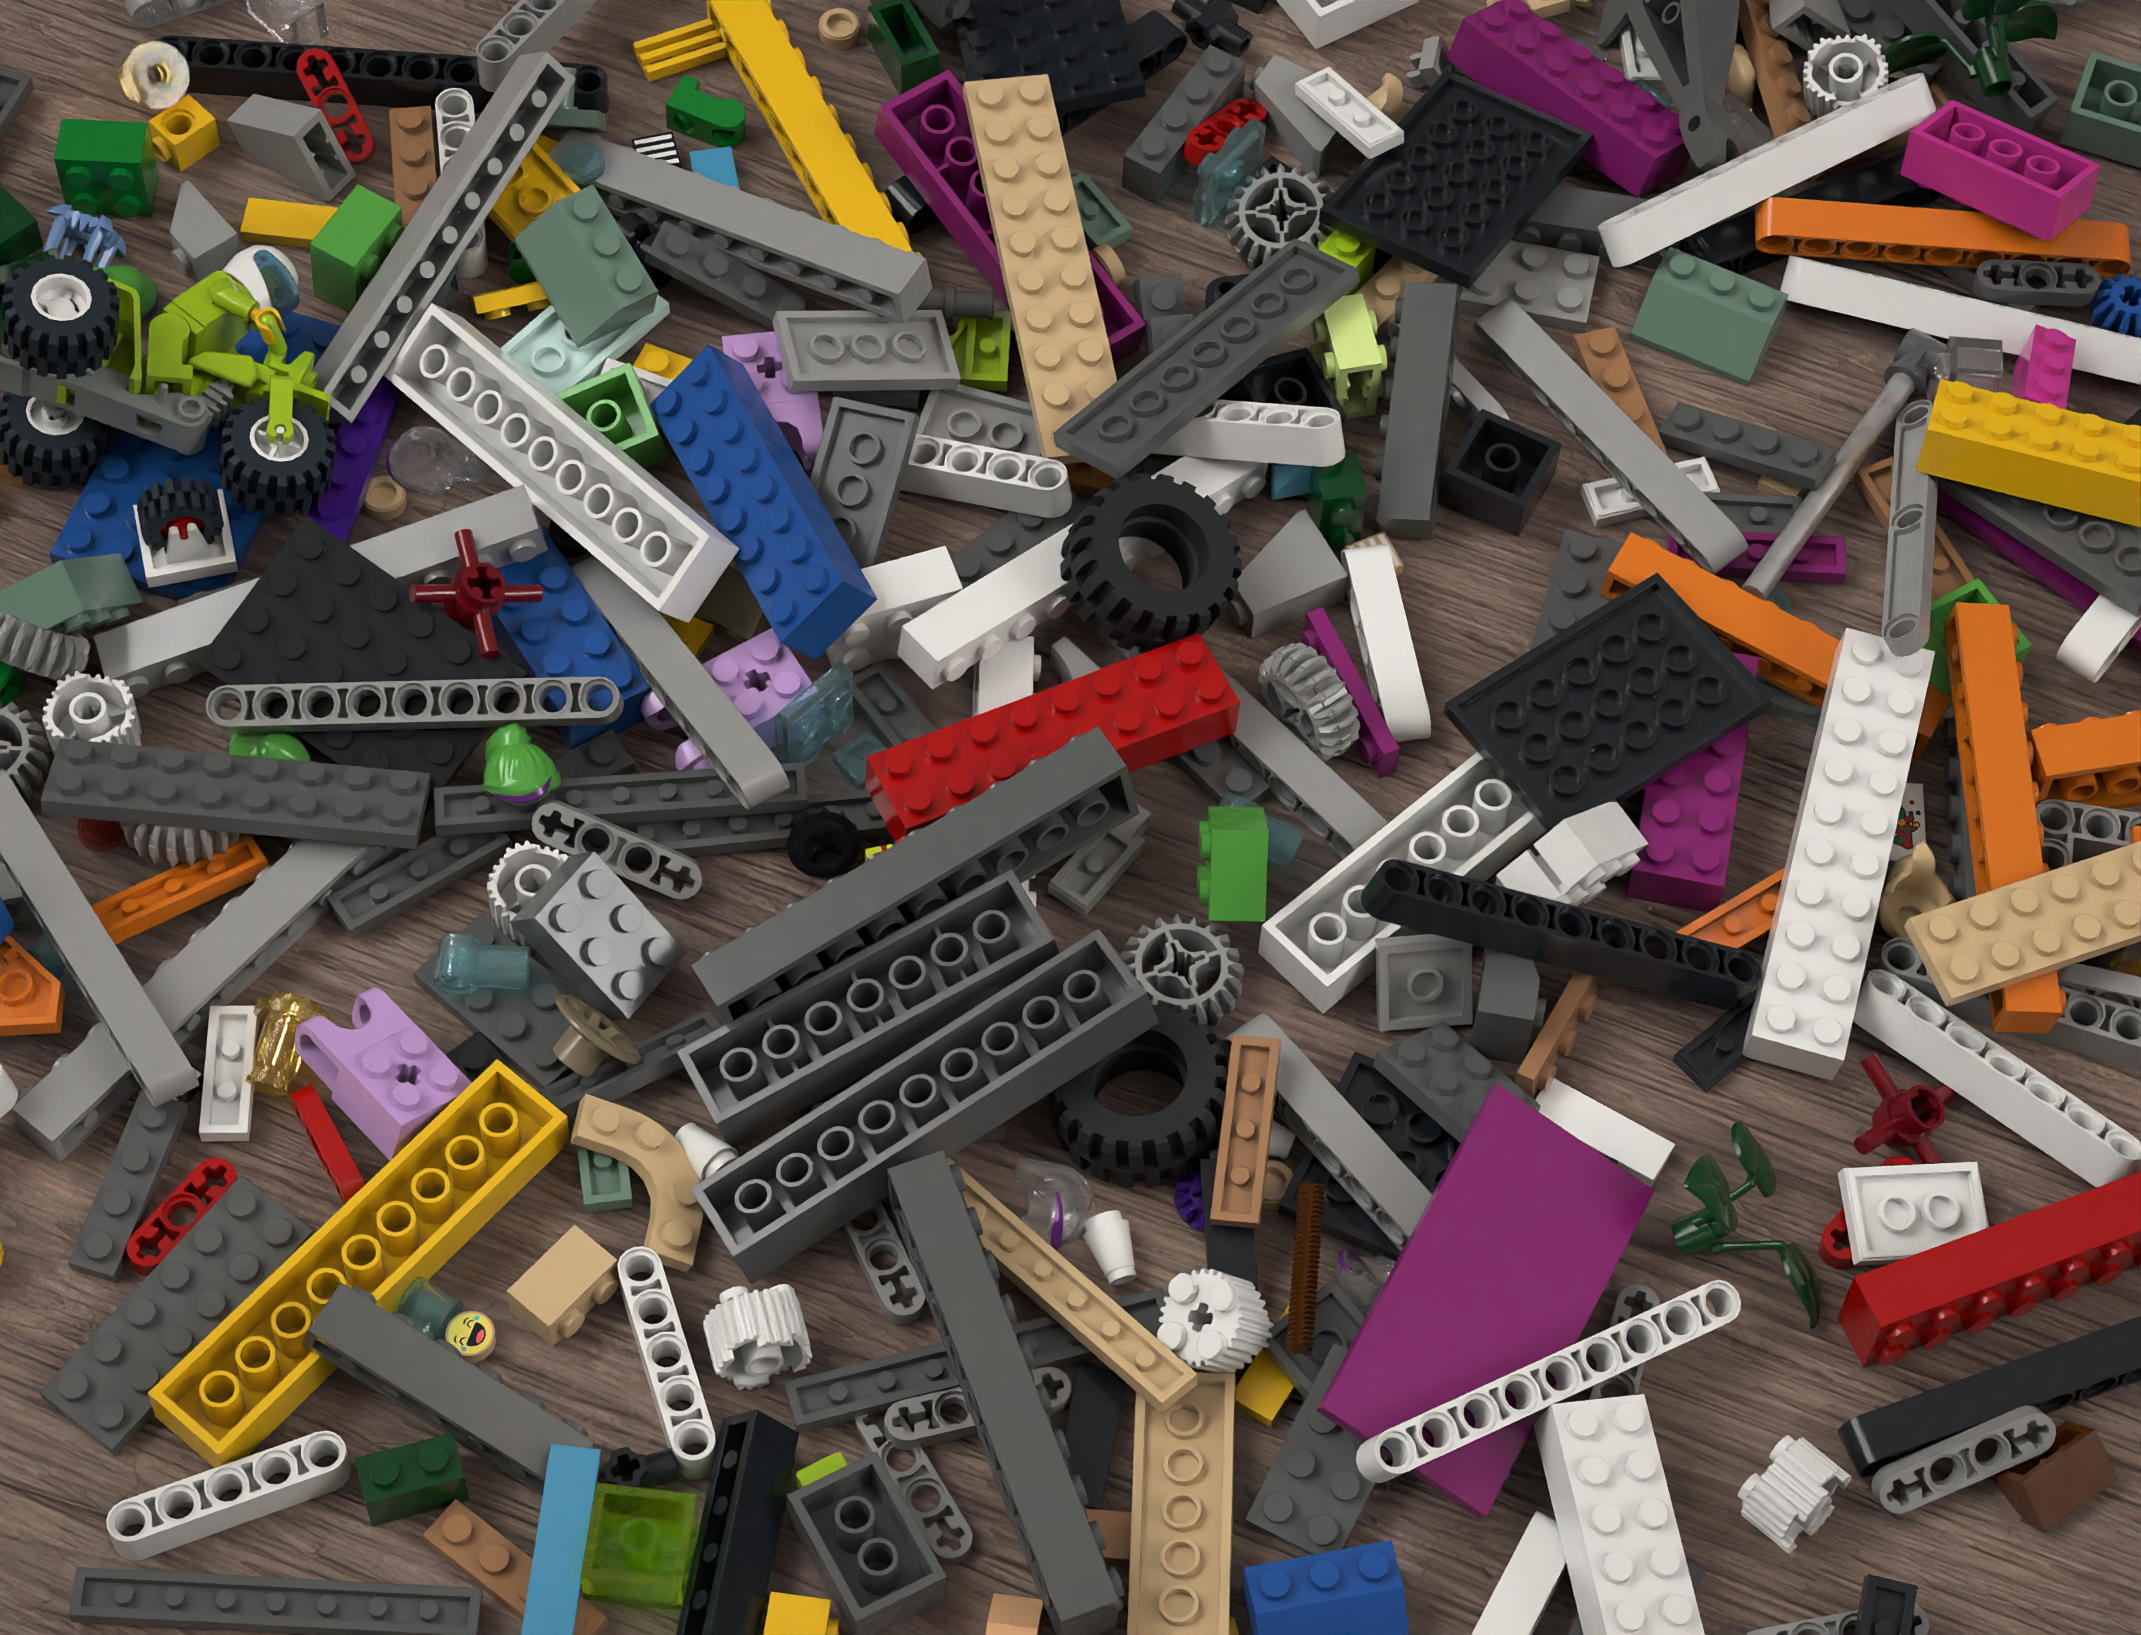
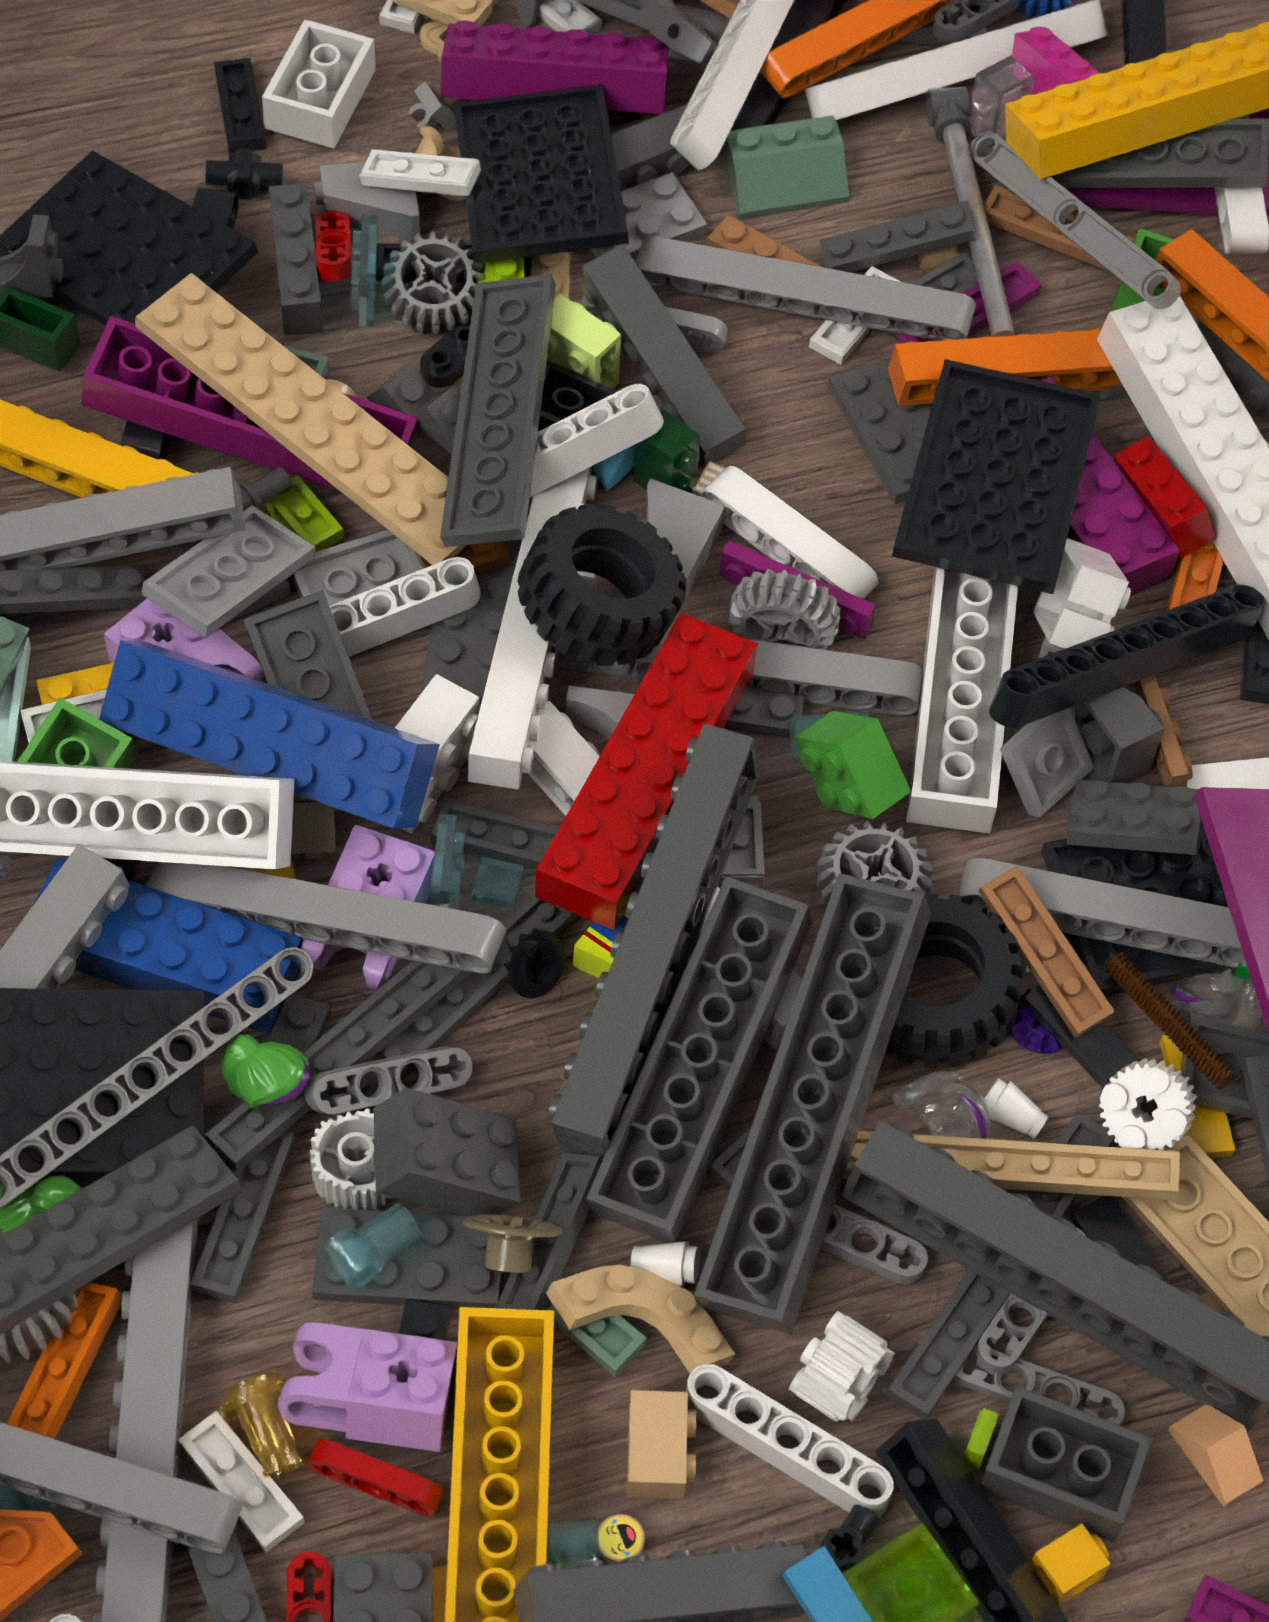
camera: 40 degrees left, 0 degrees up
(475, 594) = (116, 956): dark red bar -> none
(1499, 472) = (756, 363): black brick -> none
(1760, 832) = (1166, 495): none -> red brick

